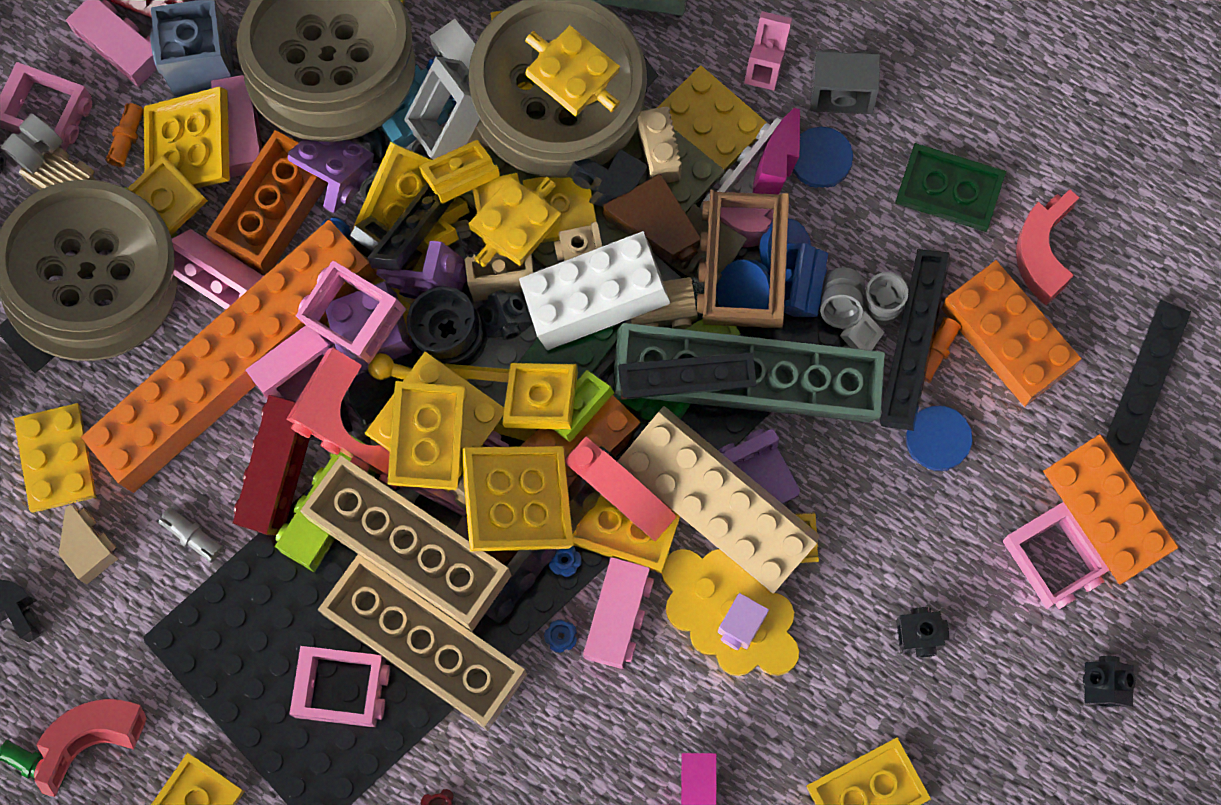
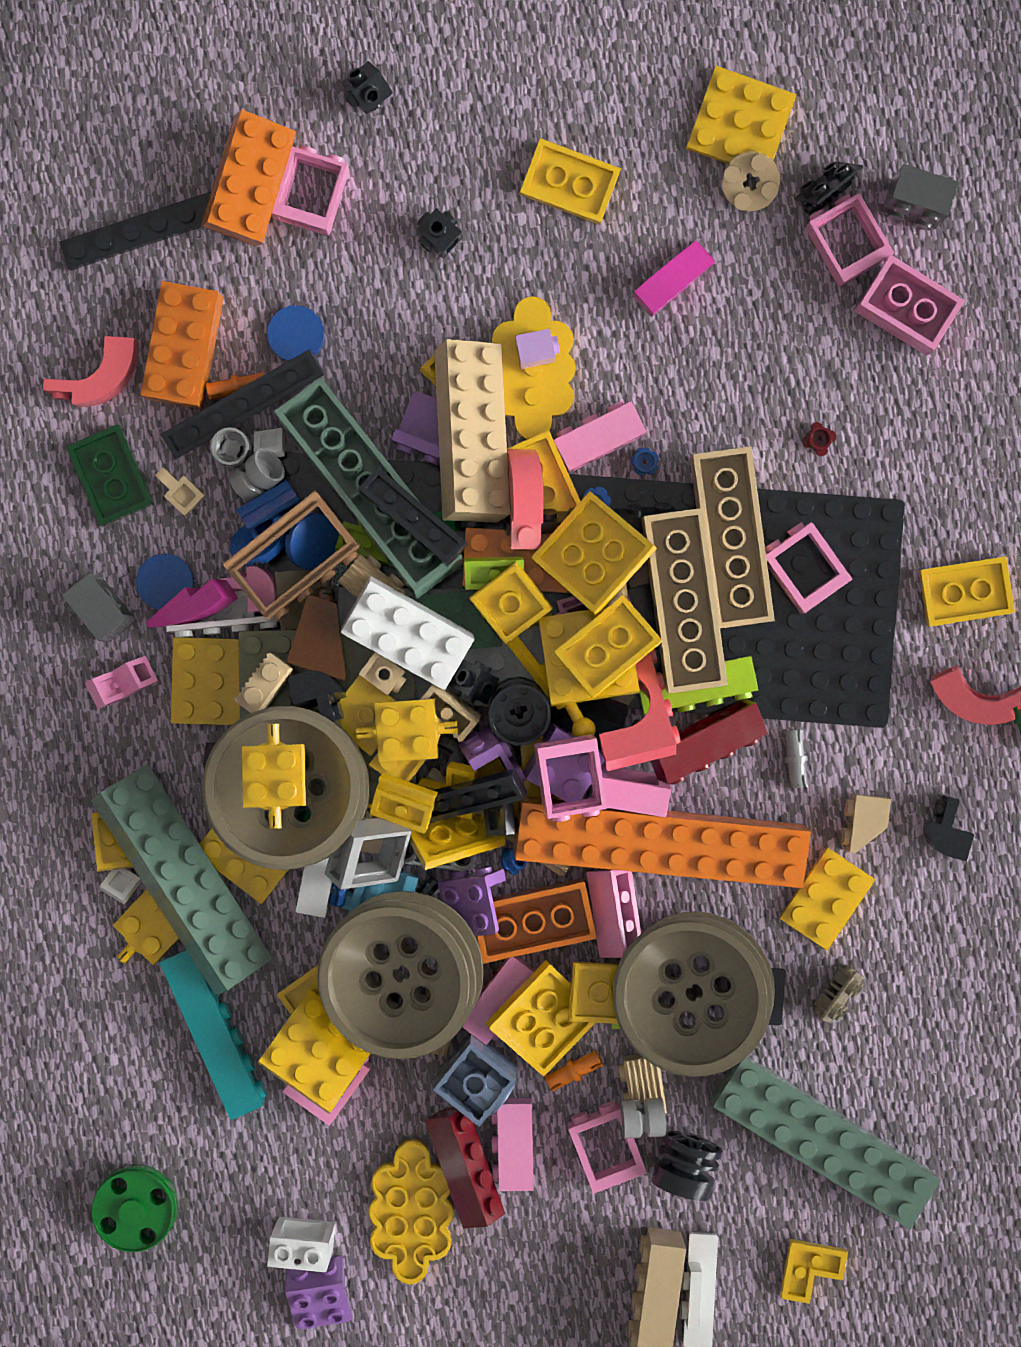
camera: 135 degrees left, 15 degrees up
(882, 230) = (181, 493): none -> tan plate

